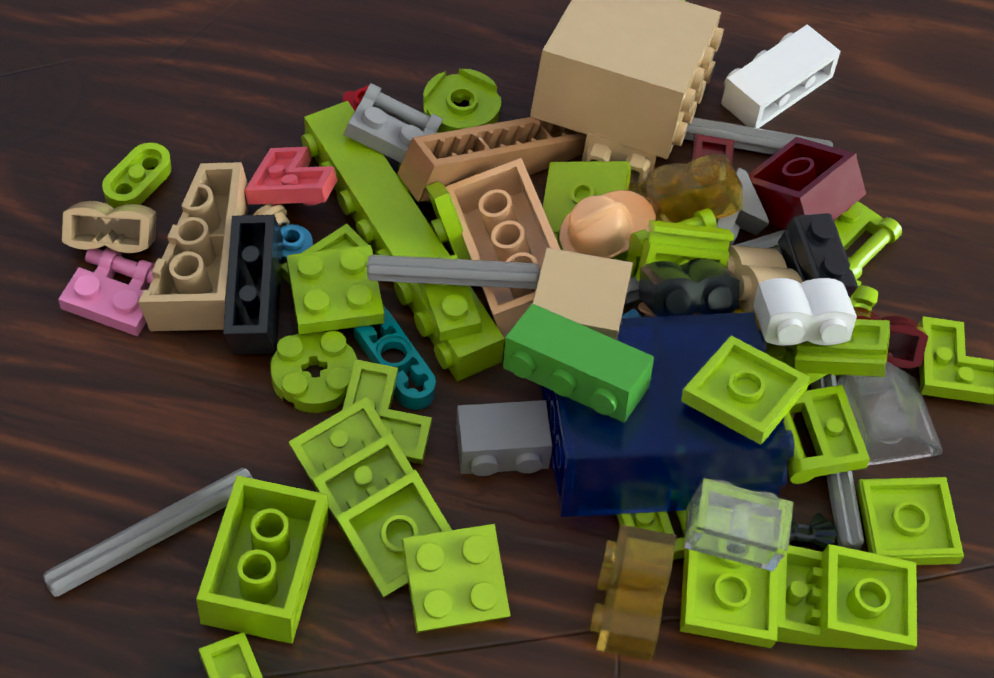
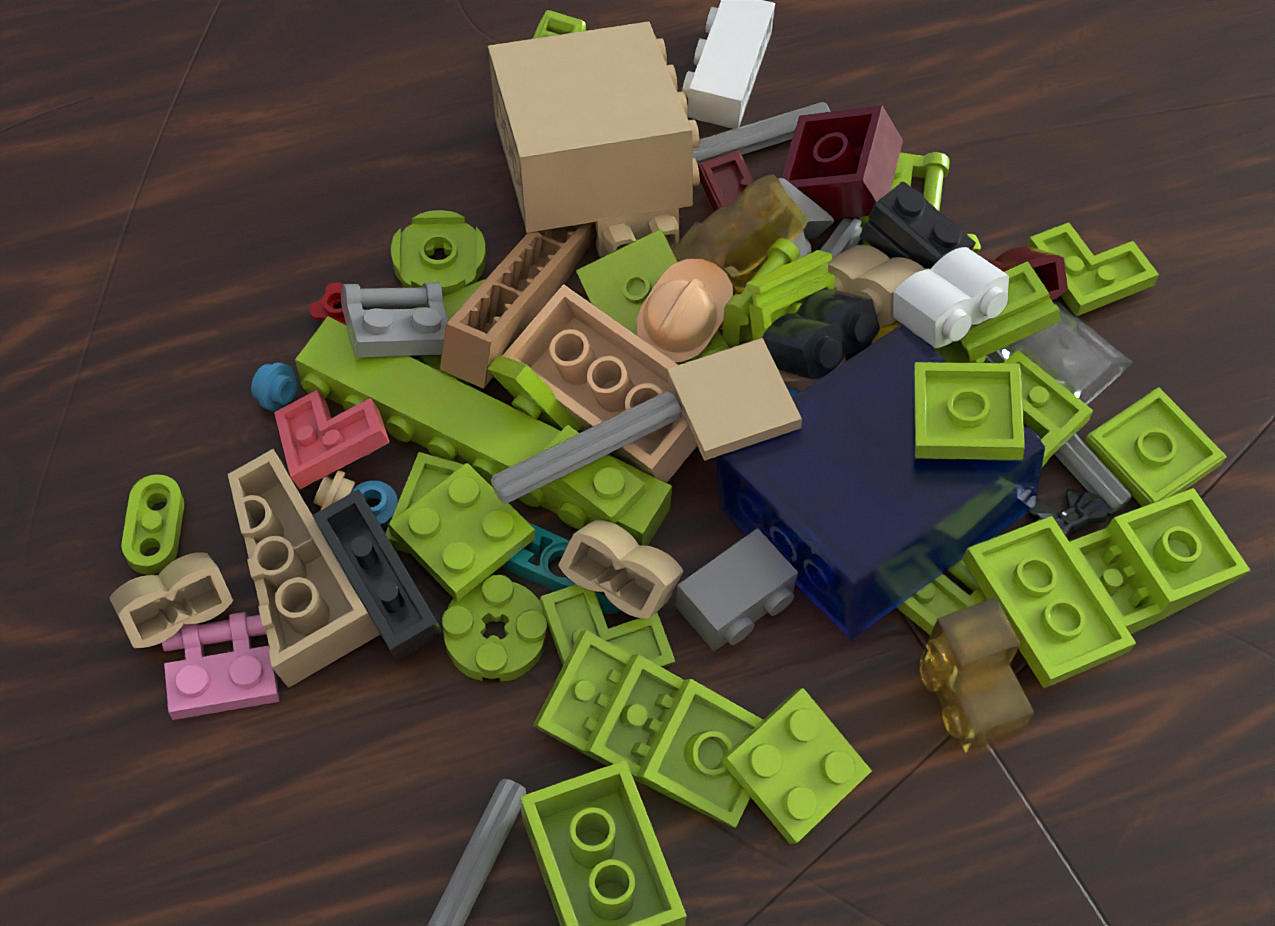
camera: 30 degrees left, 5 degrees up
(282, 130) = (274, 386): none -> dark azure plate
(422, 370) = (612, 562): none -> tan brick
(578, 362) = (794, 476): bright green brick -> none
(739, 524) = (1034, 548): clear brick -> none

